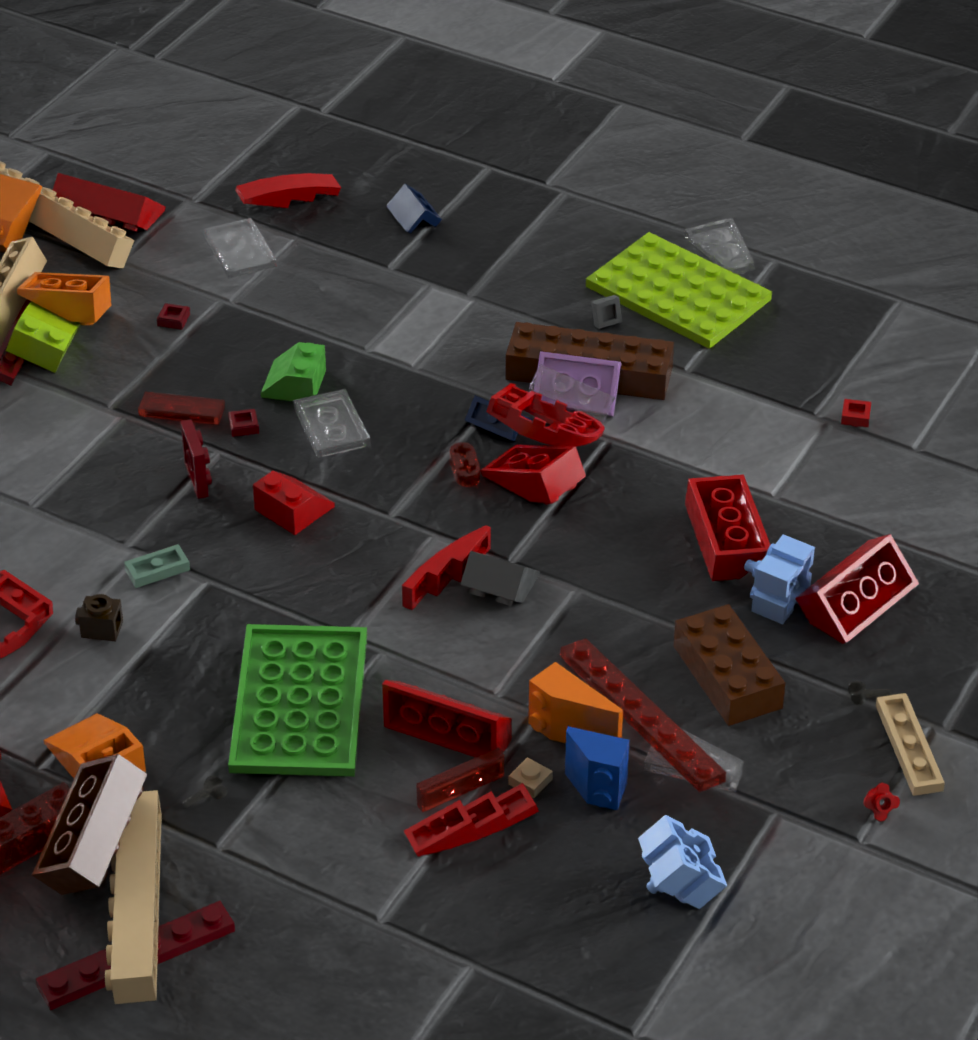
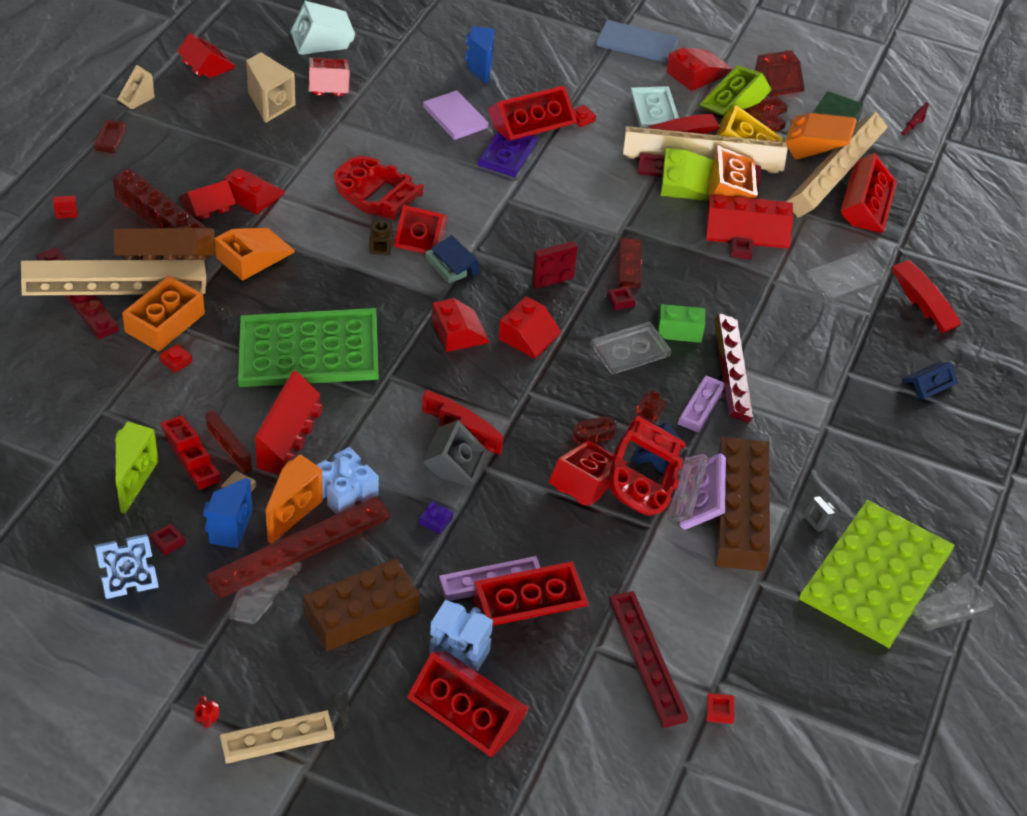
camera: 80 degrees right, 5 degrees up
(85, 574) = (420, 229): none -> red slope
(134, 300) = (748, 218): none -> red slope
(151, 549) = (456, 256): none -> dark blue panel
(217, 840) = (163, 313): none -> orange brick
(278, 565) = (457, 325): none -> red slope
(291, 841) = (175, 358): none -> red plate
(389, 344) = (733, 368): none -> plate
(429, 378) = (701, 404): none -> lavender tile
(430, 416) = (651, 406): none -> clear red tile
(510, 864) = (134, 461): none -> lime slope
(523, 663) = (347, 481): none -> light blue brick
(591, 603) = (436, 517): none -> dark purple tile
(614, 846) = (167, 539): none -> dark red tile
(687, 562) = (461, 584): none -> lavender plate
(795, 455) = (648, 660): none -> dark red plate

